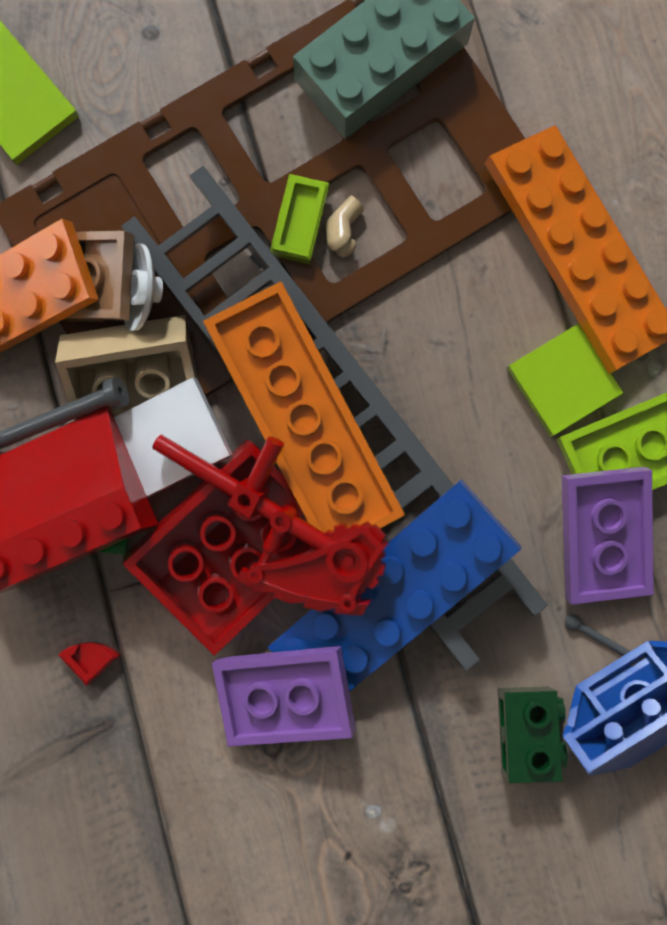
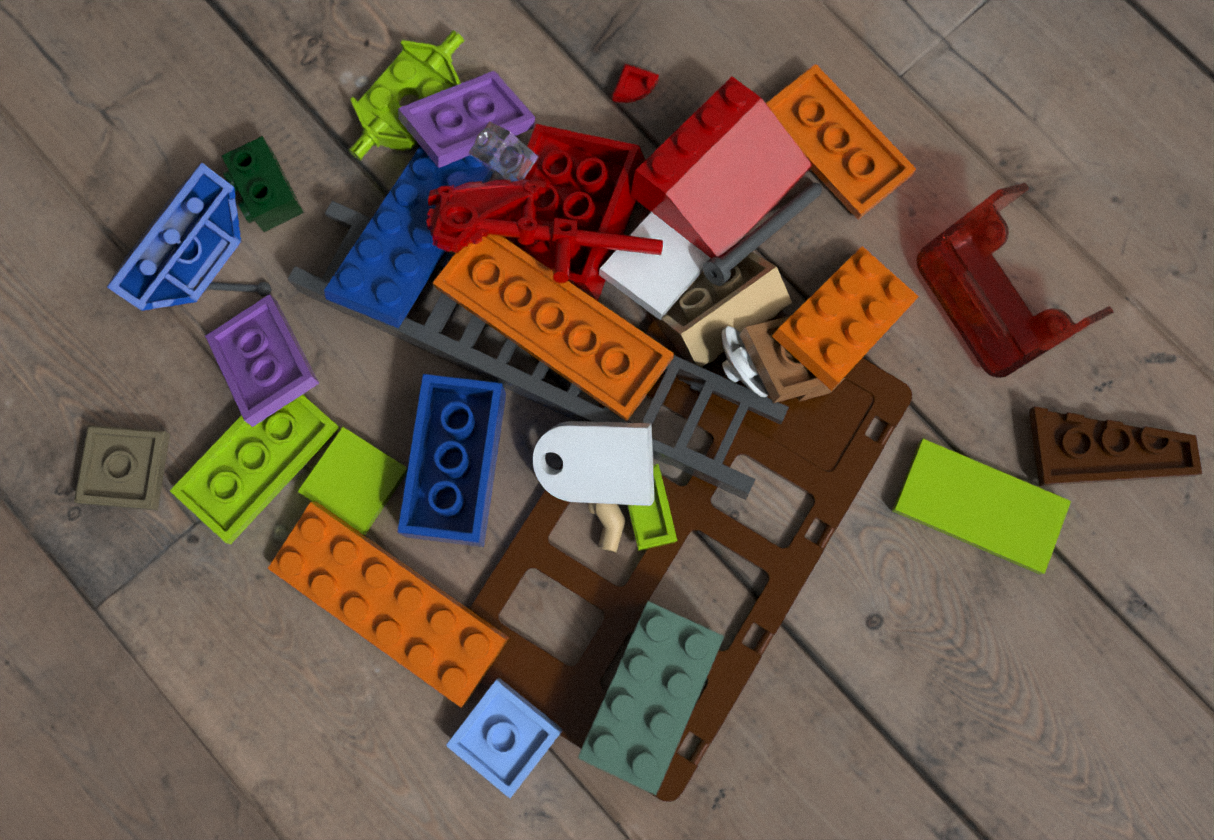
camera: 155 degrees right, 5 degrees down
(266, 629) = (503, 153): none -> clear brick
(311, 790) = (416, 71): none -> lime plate
(328, 270) = (599, 462): none -> white tile
(463, 341) = (452, 460): none -> blue brick
(528, 82) = (504, 737): none -> light blue plate

